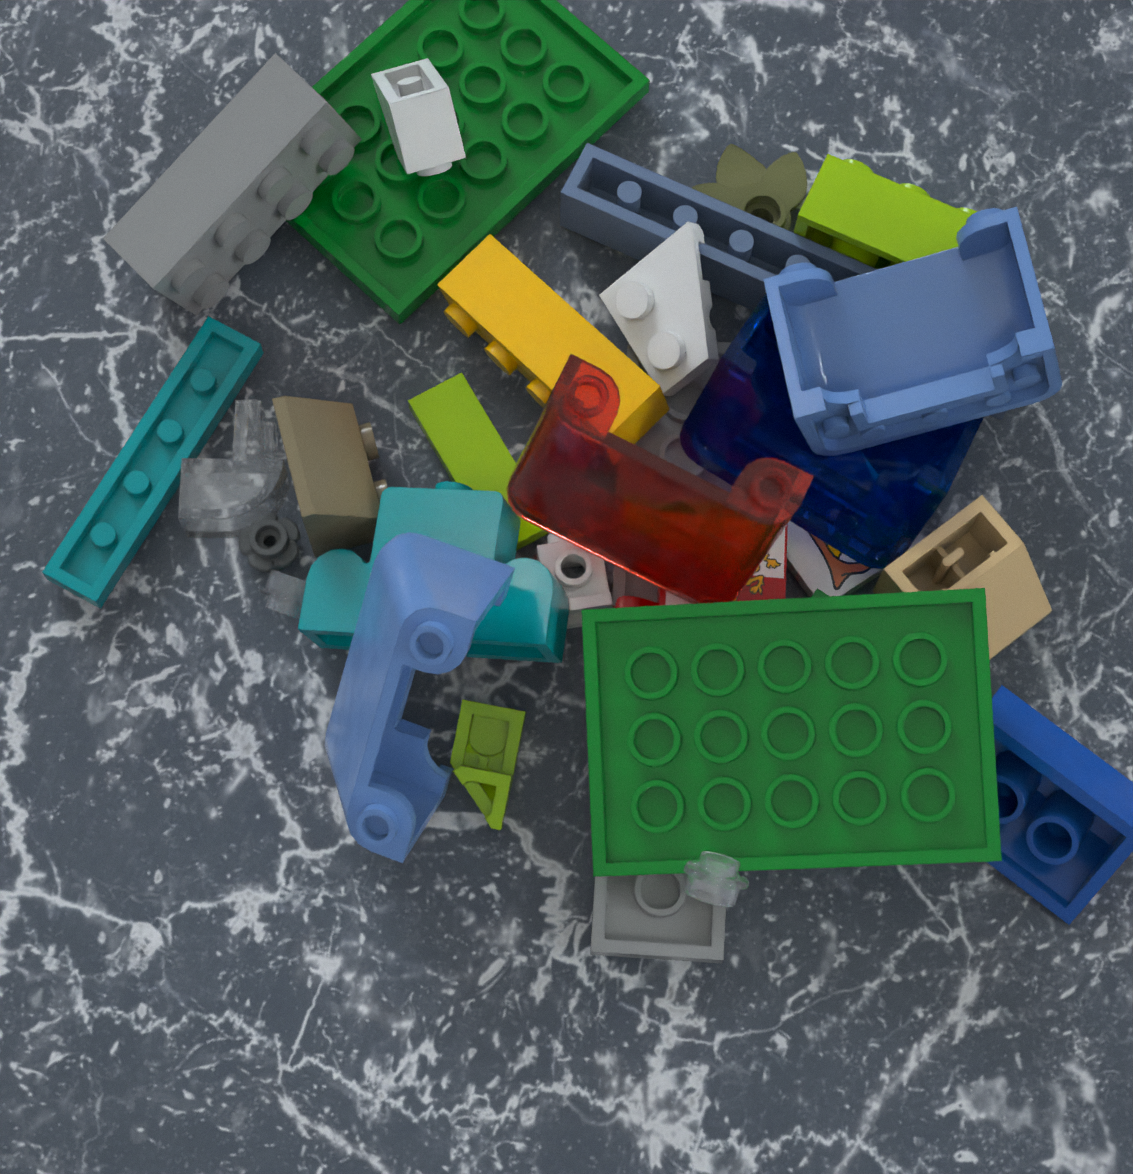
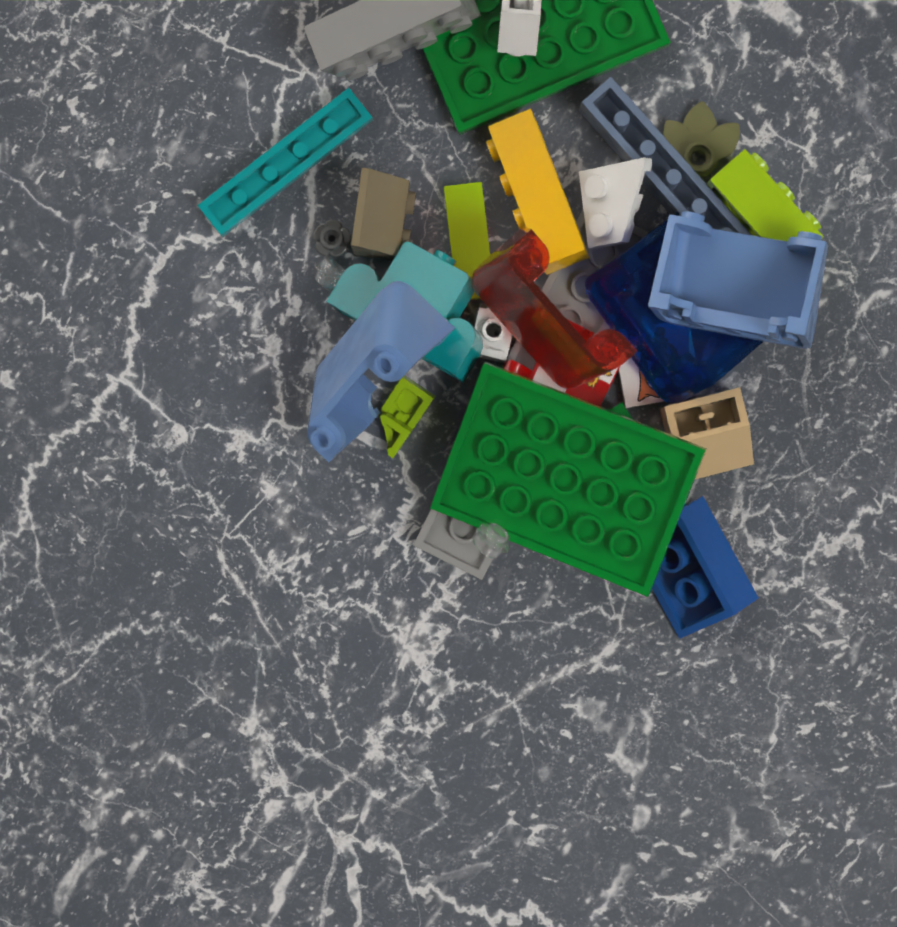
camera: 20 degrees right, 15 degrees up
(231, 494) = (326, 203): clear brick -> none

